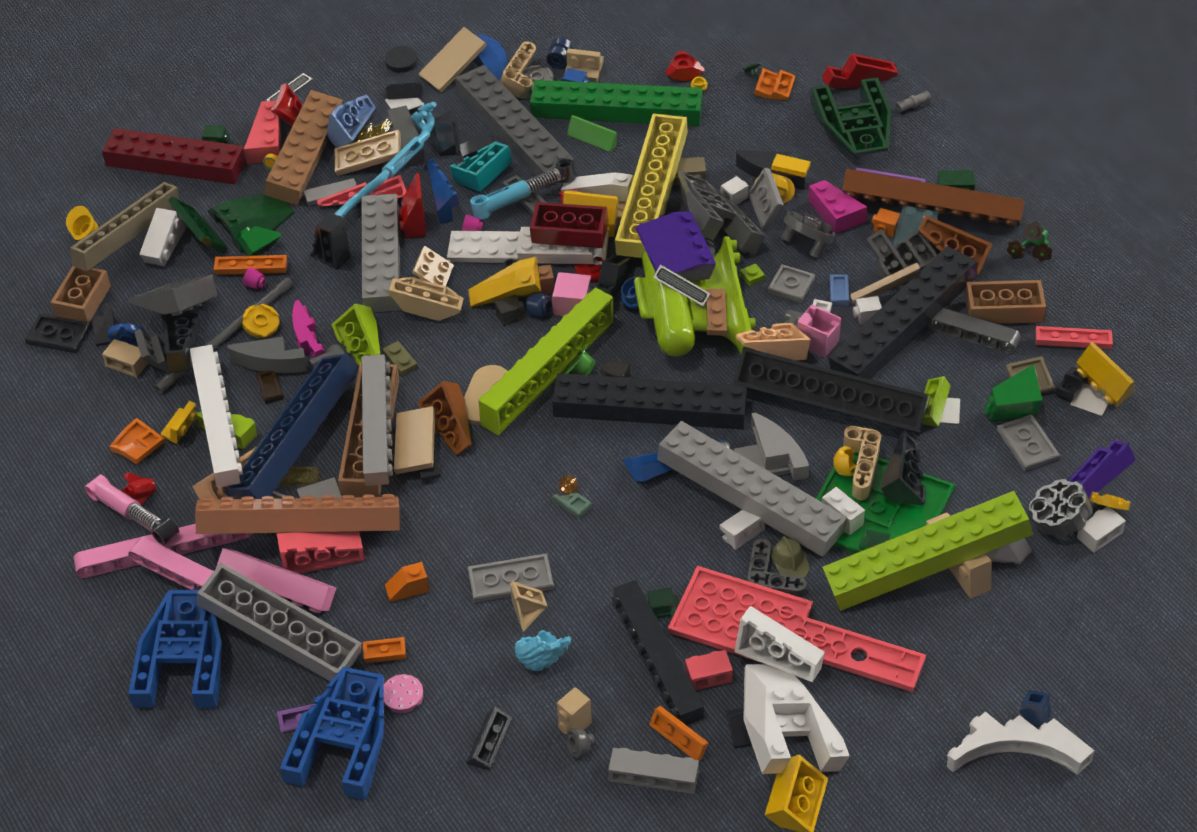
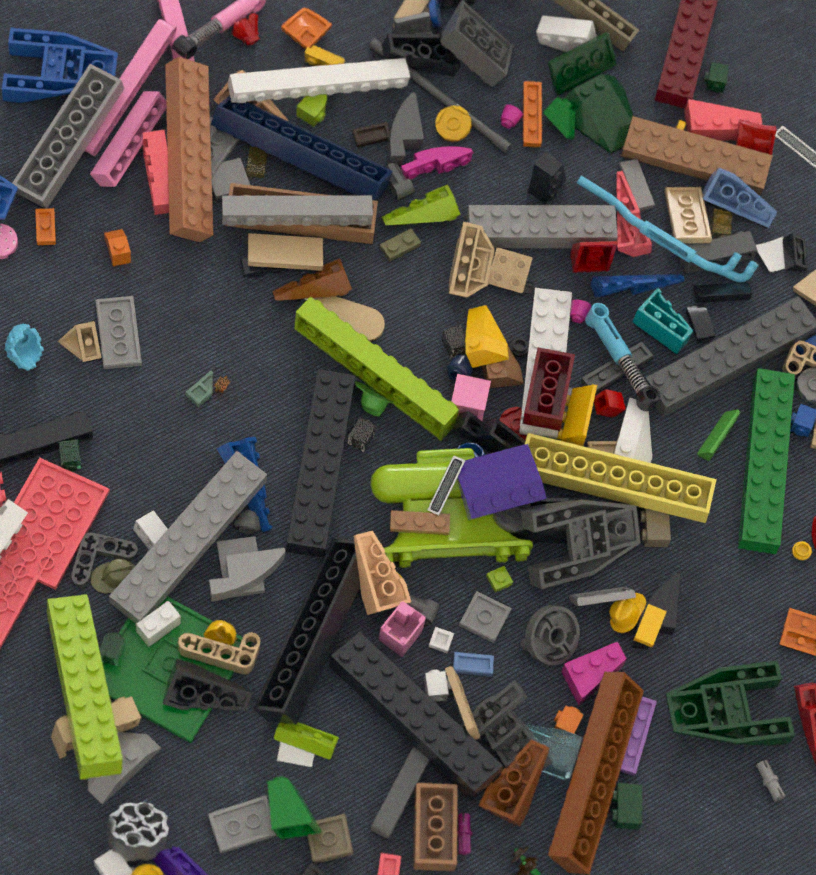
camera: 80 degrees right, 15 degrees up
(735, 190) = (622, 570): white brick -> none

